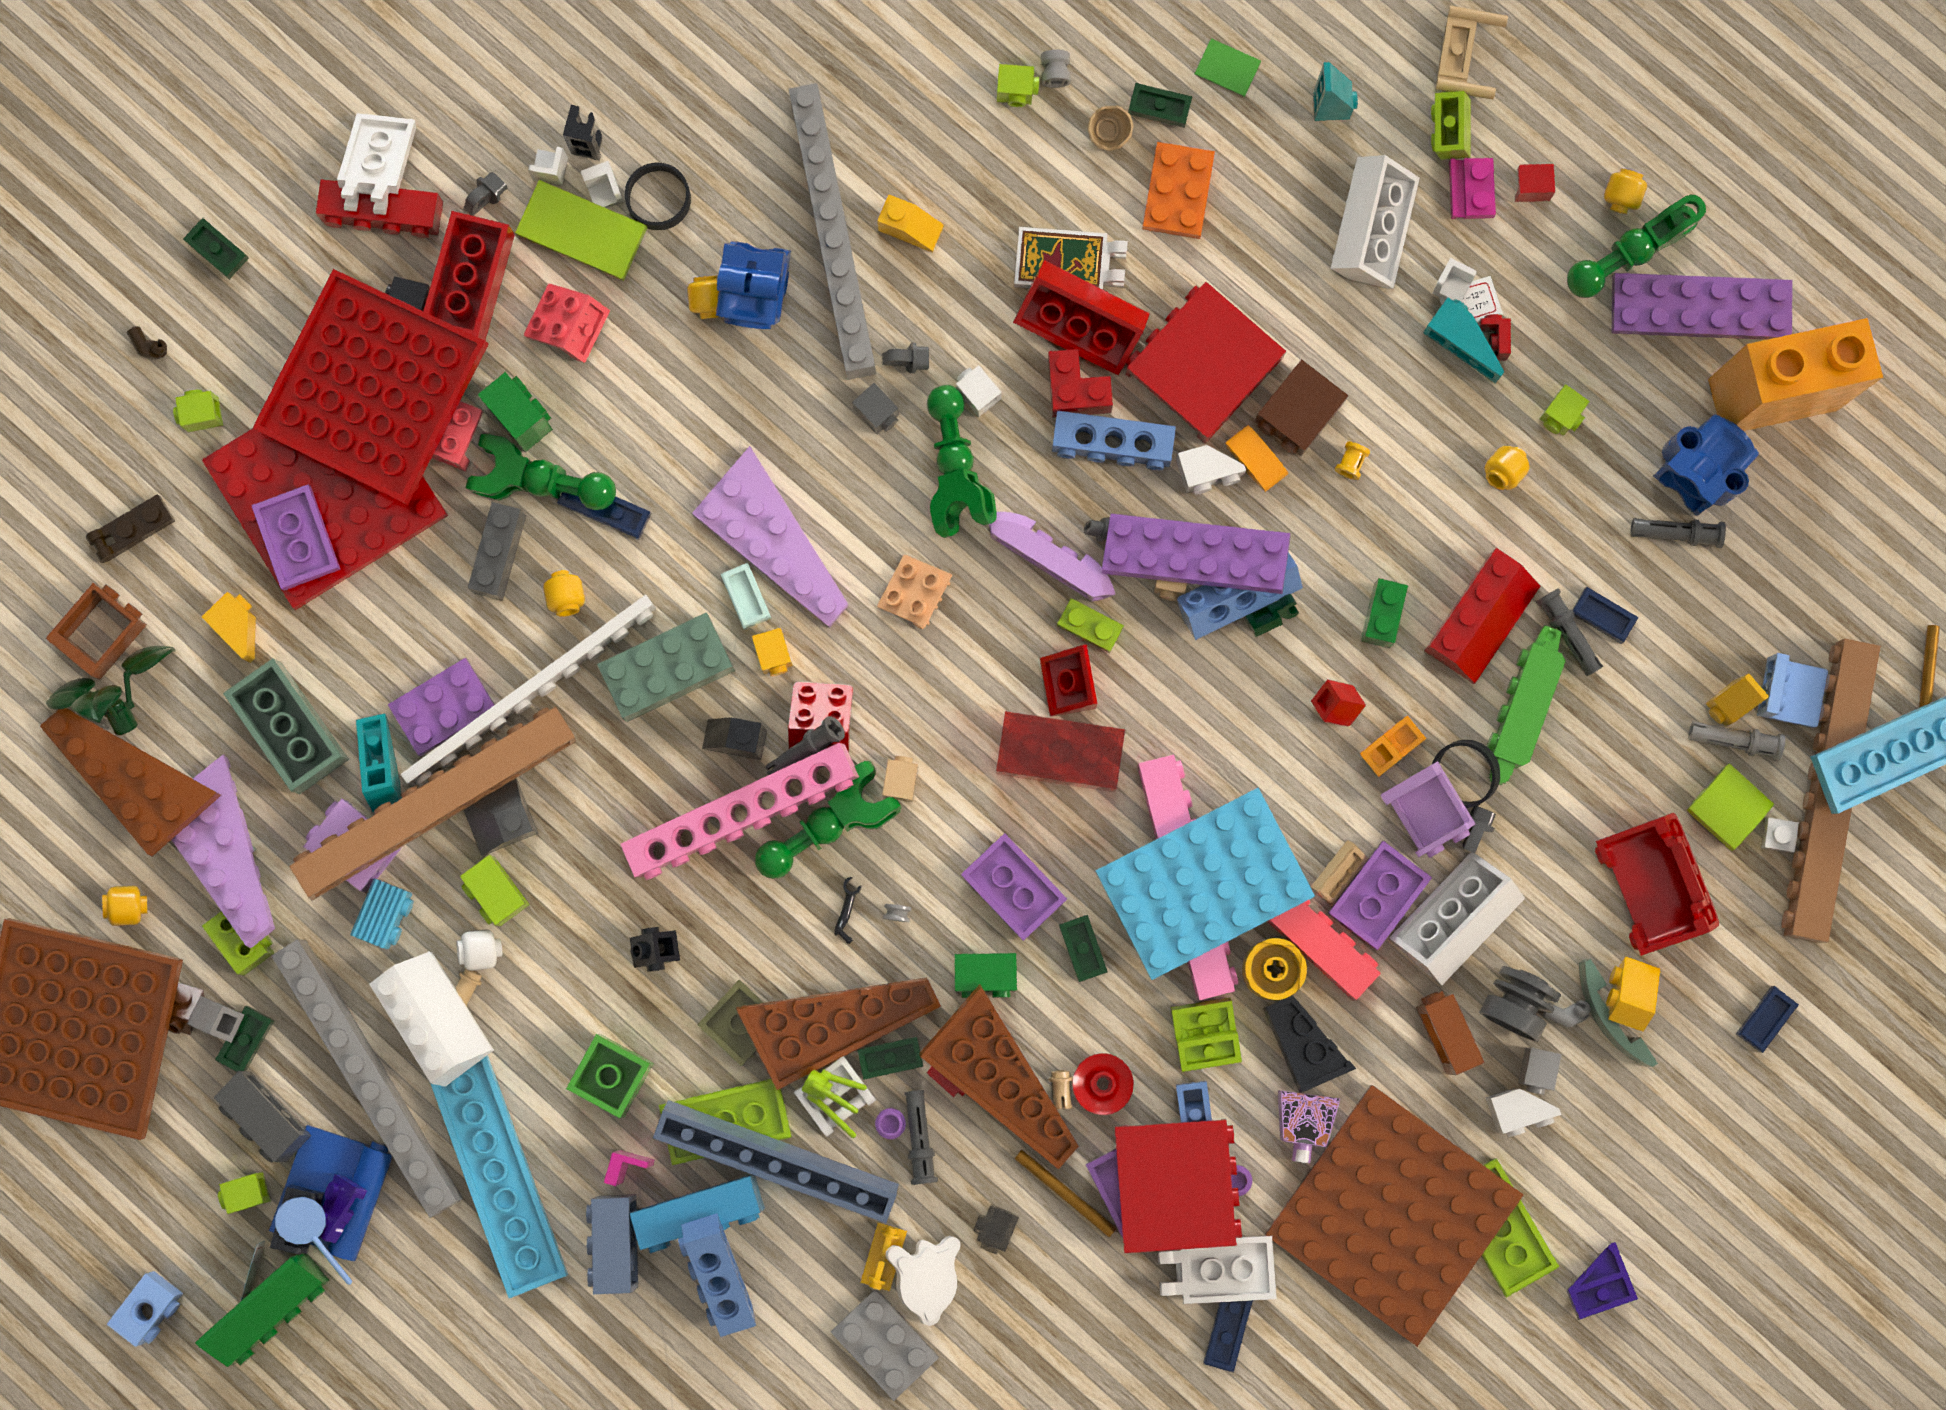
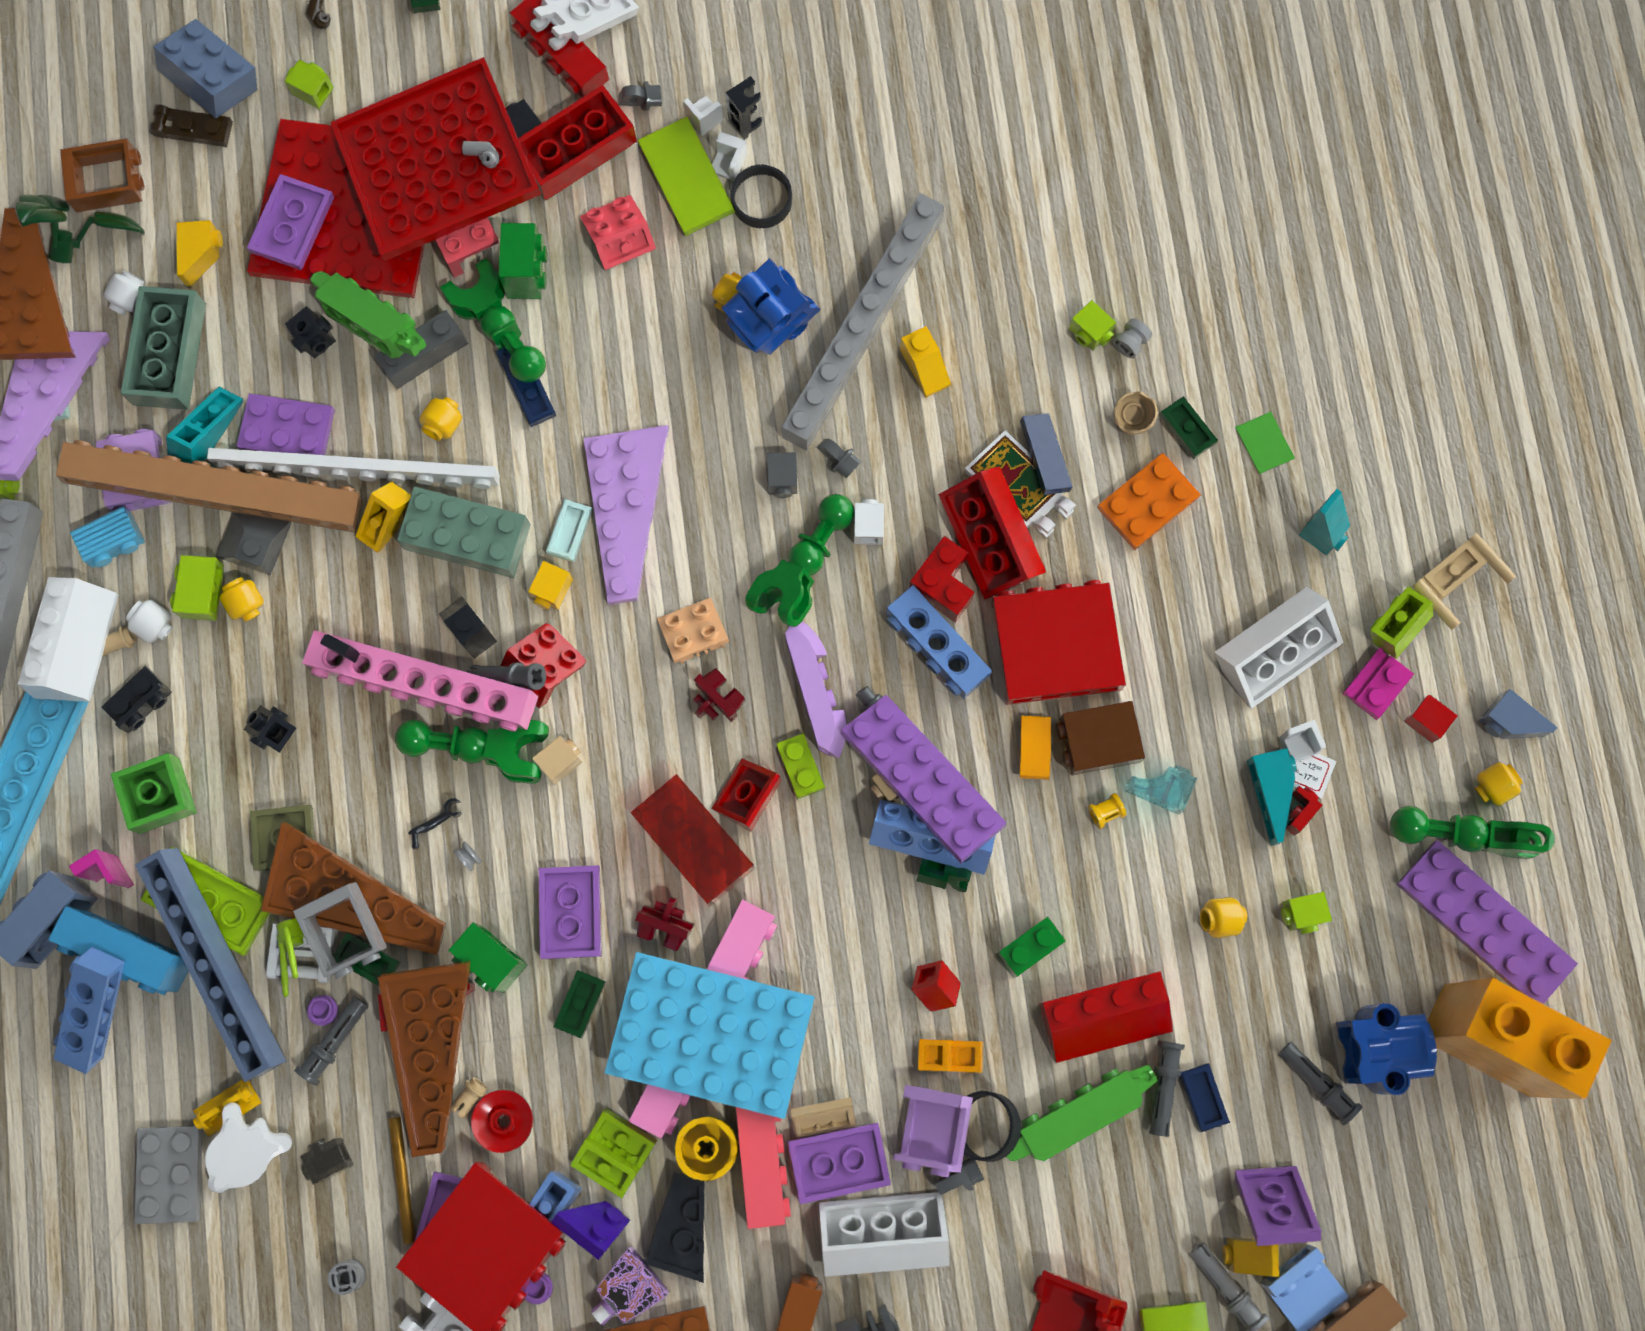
camera: 40 degrees right, 5 degrees down
(102, 470) = (205, 68): none -> sand blue brick
(209, 709) = (123, 292): none -> white head
(395, 613) = (310, 332): none -> black brick
(411, 346) = (484, 150): none -> light grey arm
(432, 560) = (367, 315): none -> bright green hinge
(525, 1019) = (137, 700): none -> black bracket
(537, 870) = (241, 599): none -> yellow head
(589, 709) = (383, 516): none -> yellow slope
(658, 838) = (340, 648): none -> black tile
(827, 1035) = (306, 918): none -> light grey window
(966, 625) = (708, 686): none -> dark red hips
(1068, 219) = (1046, 454): none -> tile
(1085, 1295) = (352, 1274): none -> light grey wheel
(1092, 828) = (667, 919): none -> dark red hips
(1206, 467) = (990, 722): white slope -> none
(1241, 1097) = (592, 1226): none -> dark purple wing
(1386, 405) = (1167, 791): none -> clear light blue arch
(1594, 129) = (1514, 718): none -> sand blue slope
(1724, 647) = (1277, 1206): none -> medium lavender plate

